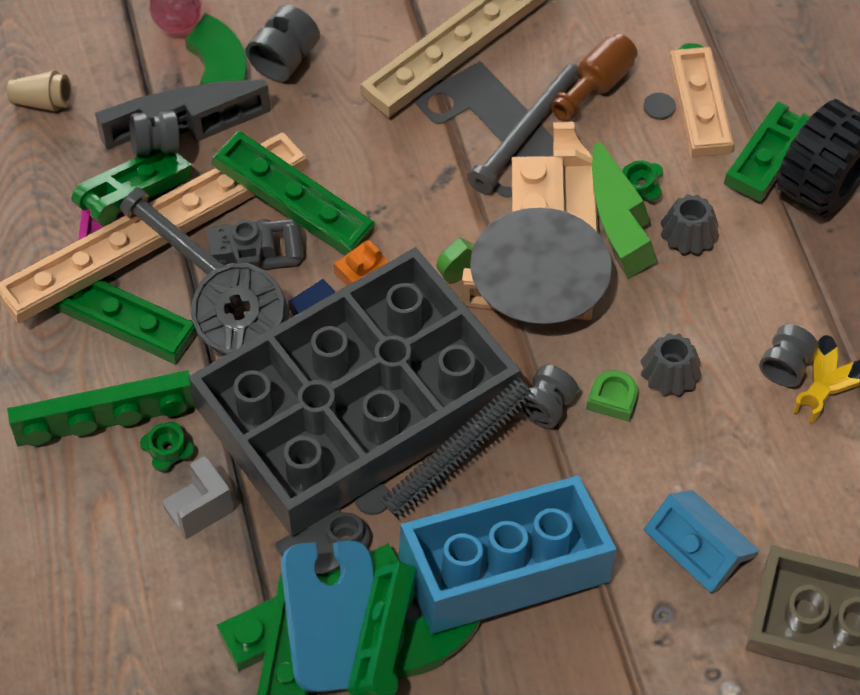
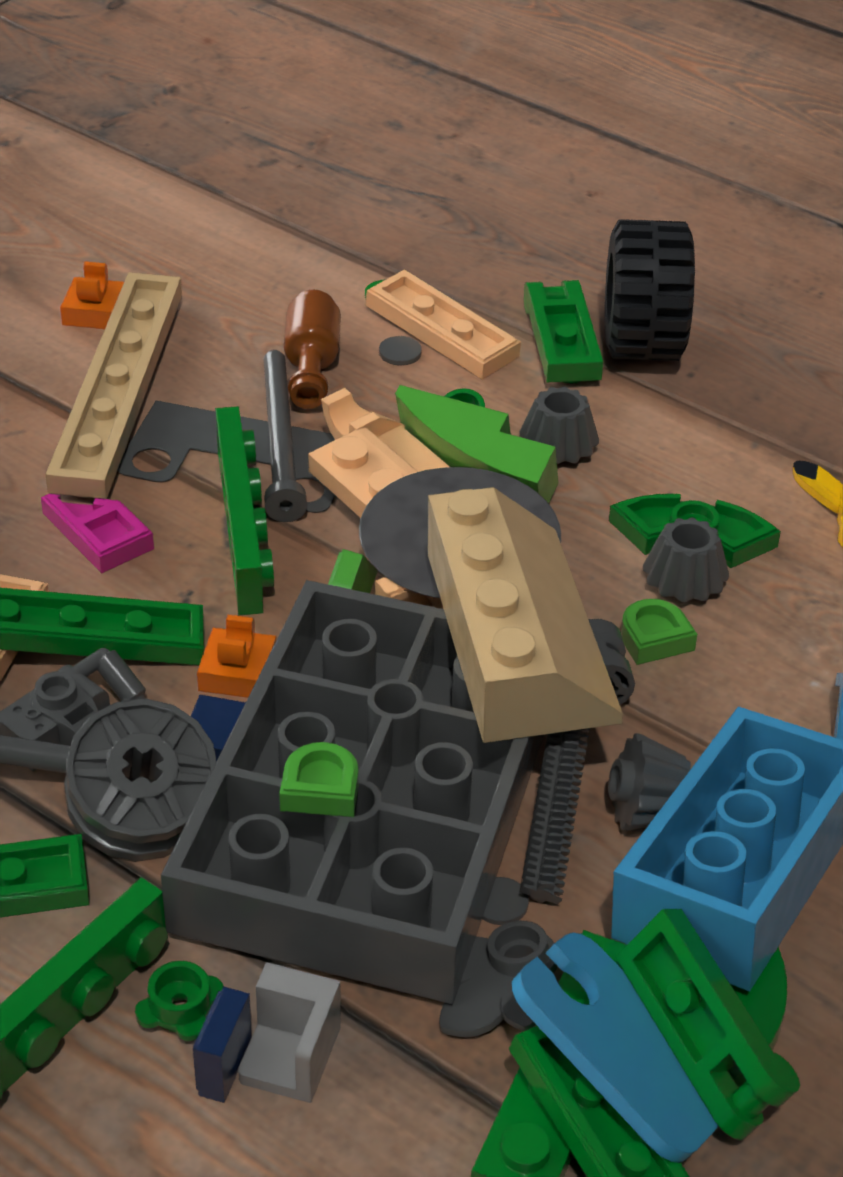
camera: 40 degrees left, 15 degrees down
(160, 482) = (222, 1044): none -> dark blue tile
(304, 375) = (320, 781): none -> bright green tile
(368, 137) = (102, 531): none -> dark pink tile
(441, 178) = (245, 524): none -> green plate
(492, 343) = (516, 619): none -> tan slope
(499, 480) = (644, 780): none -> dark grey piece
(717, 345) = (740, 530): none -> green tile
(790, 352) = (792, 490): dark grey wheel -> none

